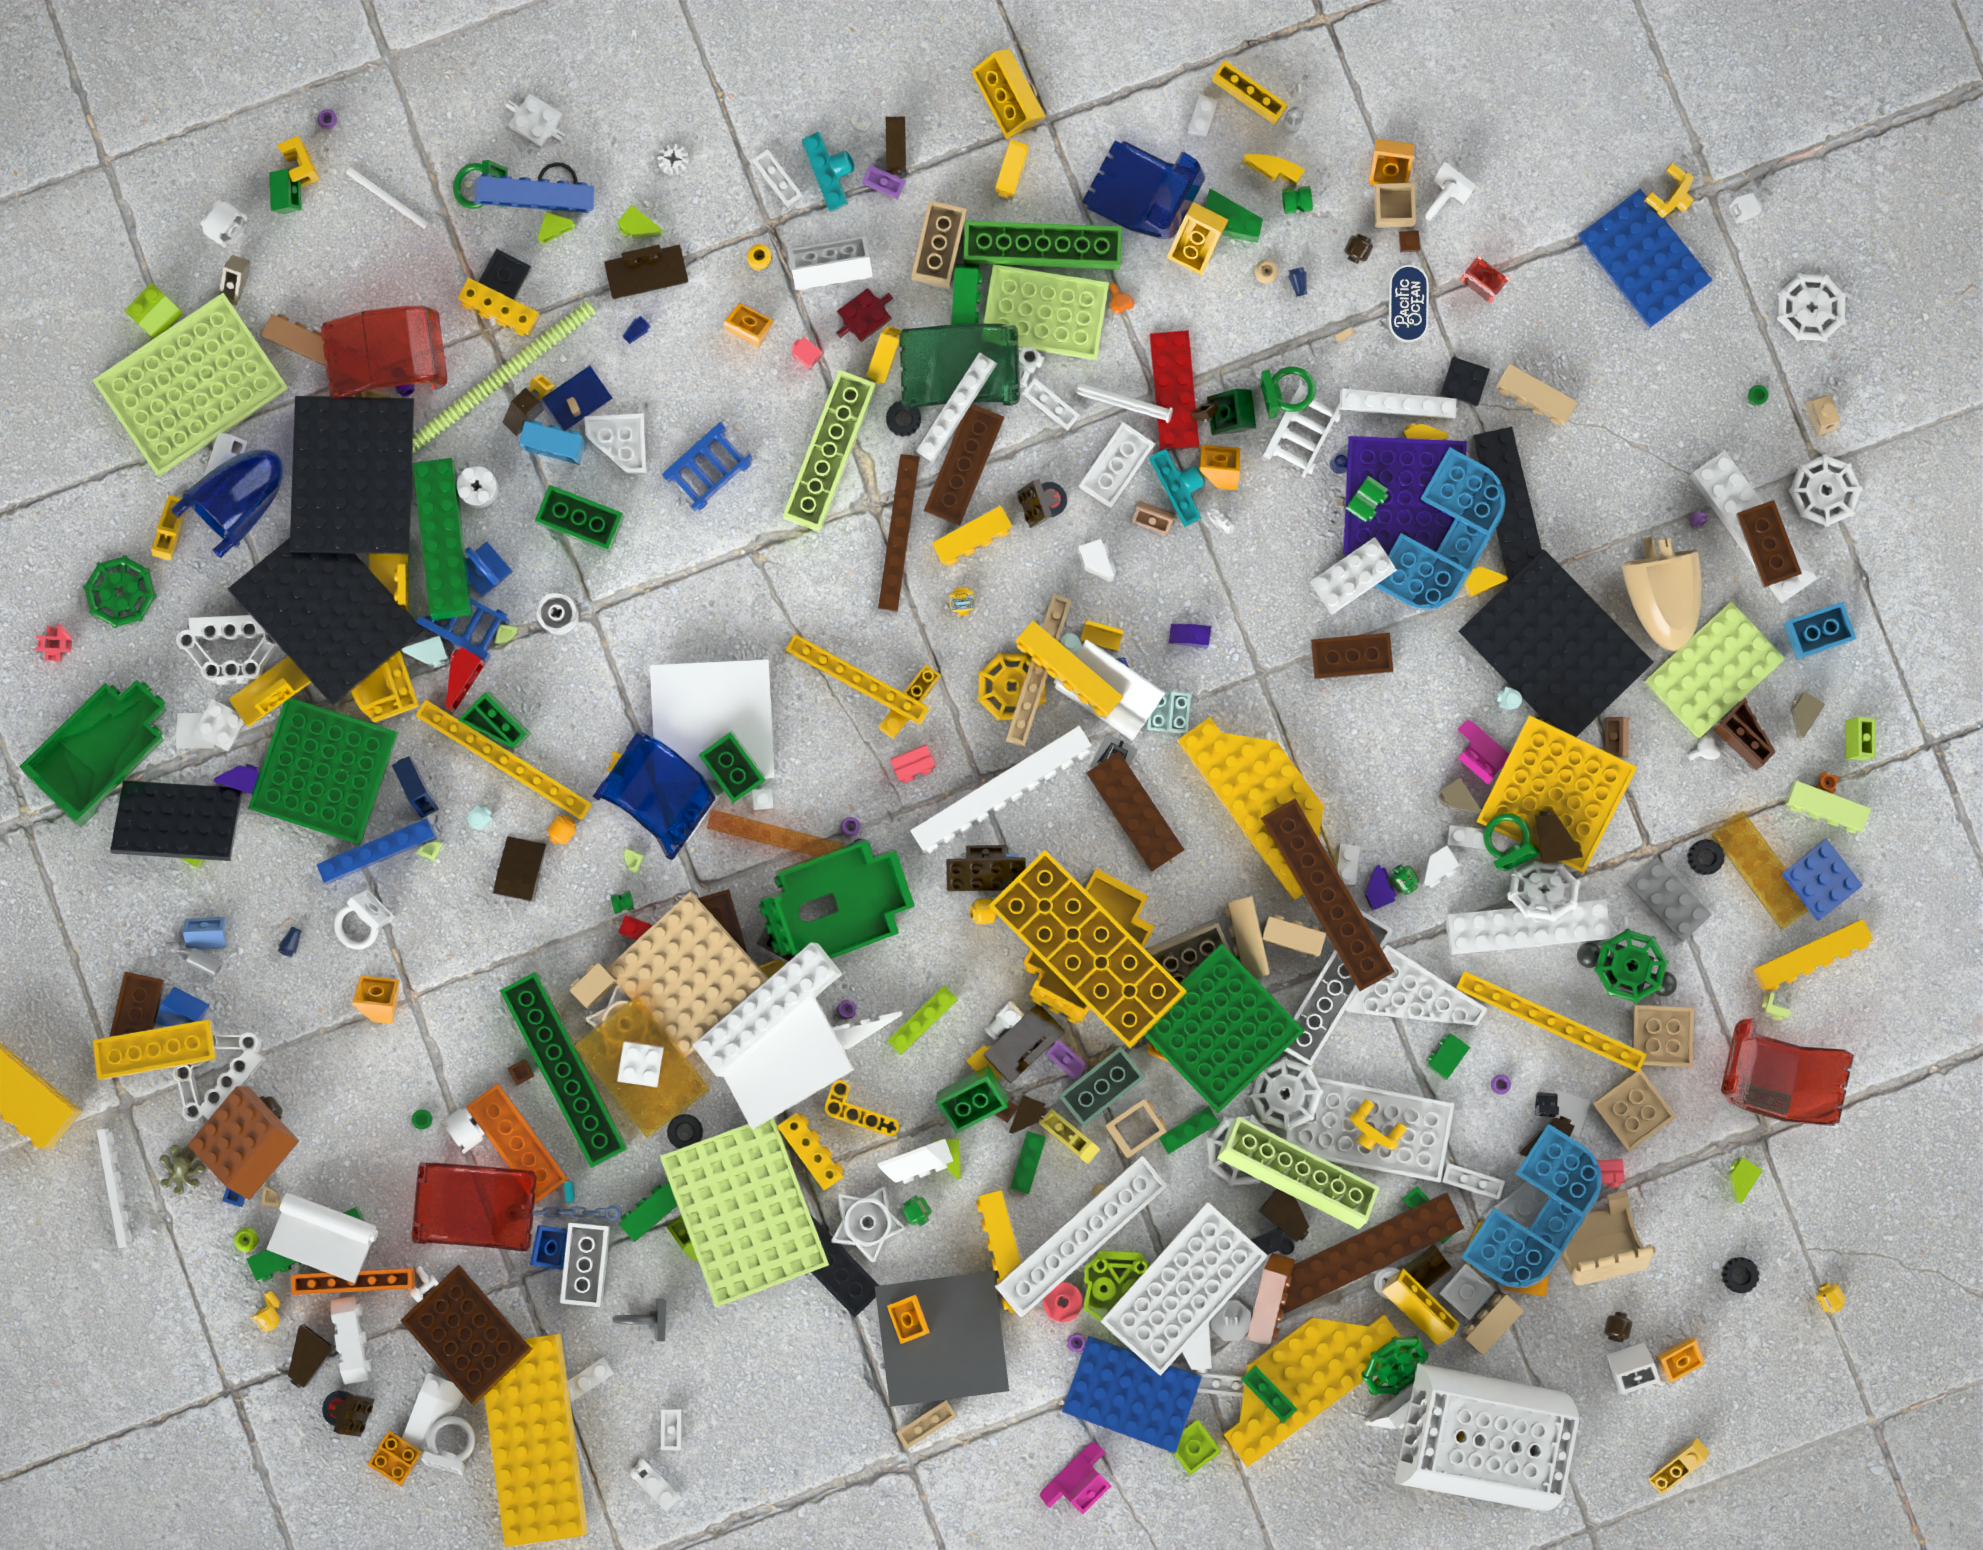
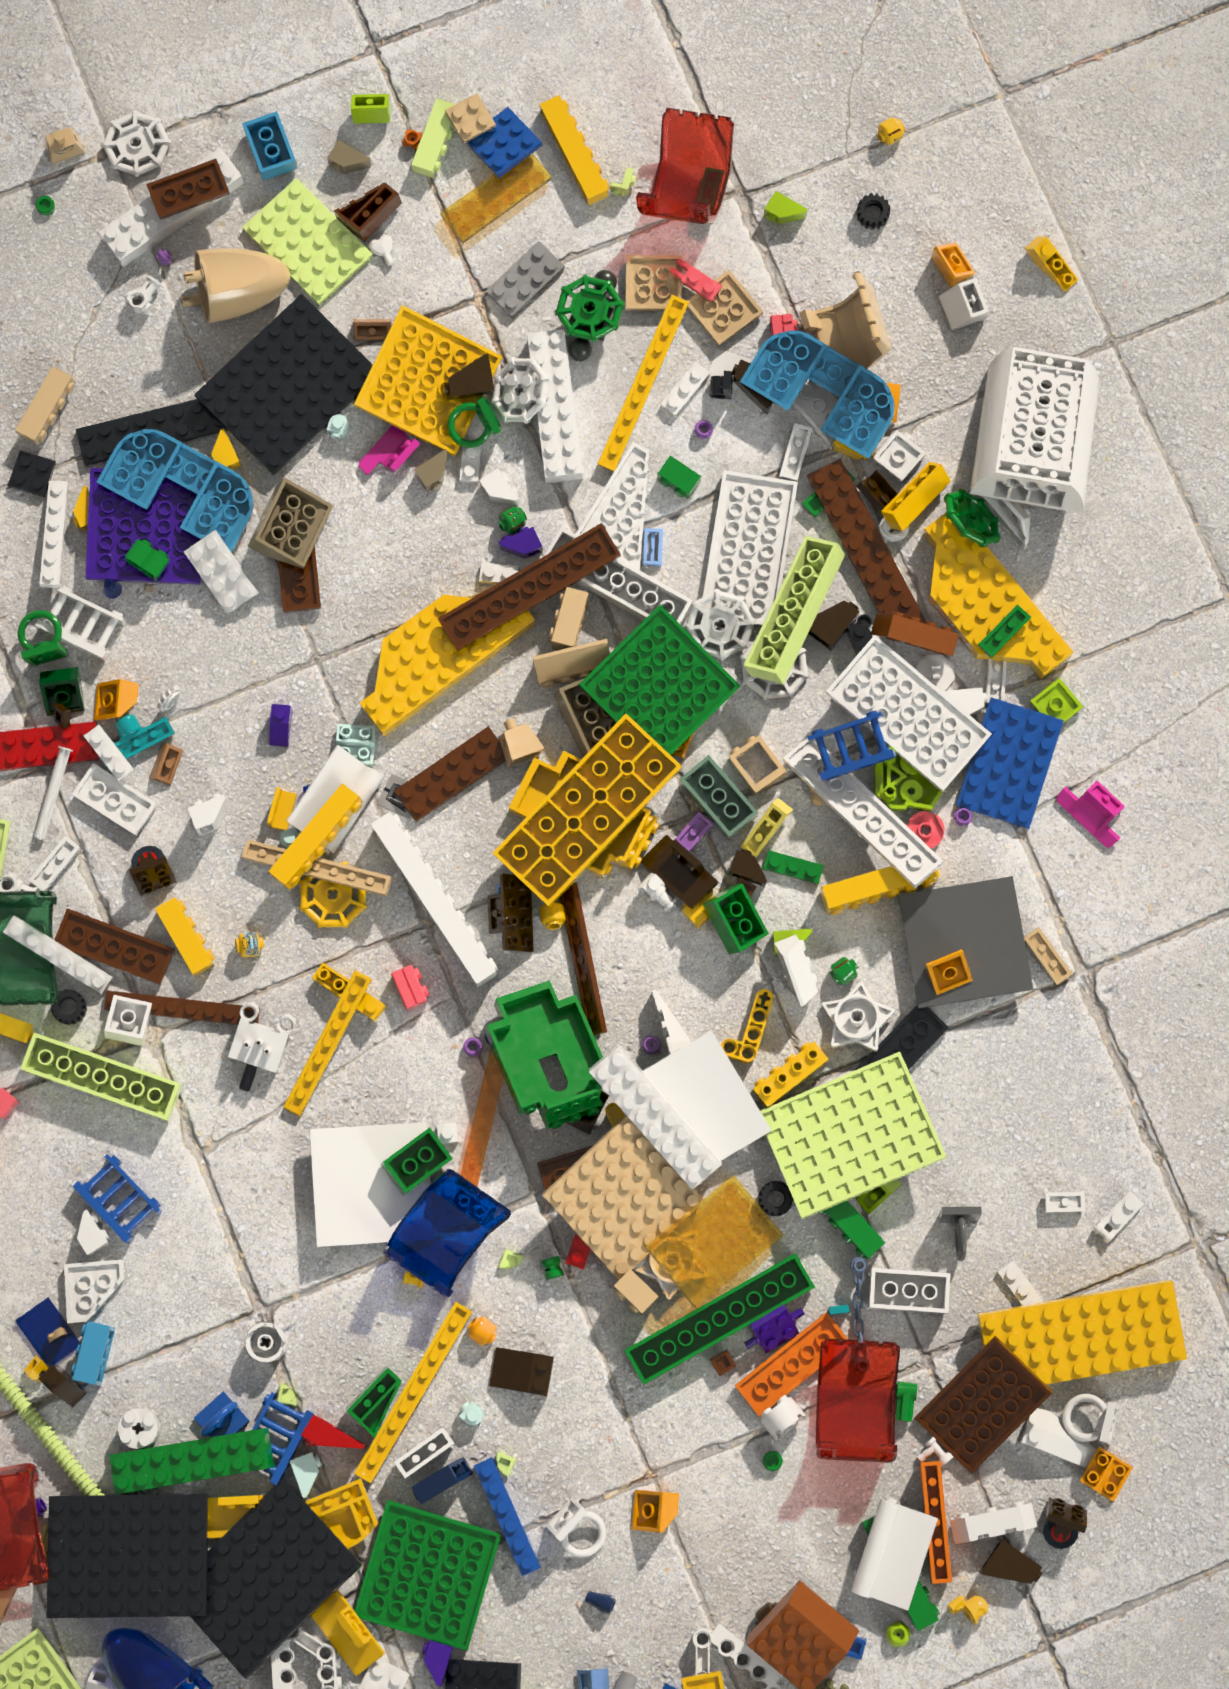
camera: 90 degrees left, 5 degrees down
(270, 1197) = (856, 1611): tan tile -> none
(442, 769) = (424, 1453): none -> white brick
(480, 1257) = (905, 1395): none -> green piece
(549, 1247) = (893, 1327): blue slope -> none
(551, 1125) = (774, 1328): none -> dark purple plate
(579, 518) = (170, 1323): green brick -> none
(640, 1064) = (711, 1241): white plate -> none
(672, 440) = (90, 1234): none -> white slope
(858, 609) = (258, 1045): none -> white piece
(886, 478) = (128, 1020): none -> white slope
(922, 1020) = (660, 970): lime brick -> none
(935, 941) = (583, 960): none -> reddish brown plate
(1134, 1241) = (865, 759): none -> blue fence
(1163, 459) = (109, 753): none -> white plate
(1164, 881) = (519, 743): none -> tan torso
(1188, 1130) = (756, 716): green plate -> none
(1371, 1034) = (652, 563): none -> light blue tile
(1371, 1136) = (756, 545): yellow connector -> none
(1402, 647) = (290, 524): none -> dark tan slope
(1491, 1323) = (928, 431): tan brick -> none
(1545, 1066) = (685, 389): none -> white plate
(1618, 1327) = (926, 318): dark brown head -> none
(1658, 499) = (143, 293): none -> white connector
(1662, 1082) = (696, 280): none -> coral hinge
(1717, 852) = (484, 236): black tyre -> none
(1847, 844) = (470, 118): none -> tan plate

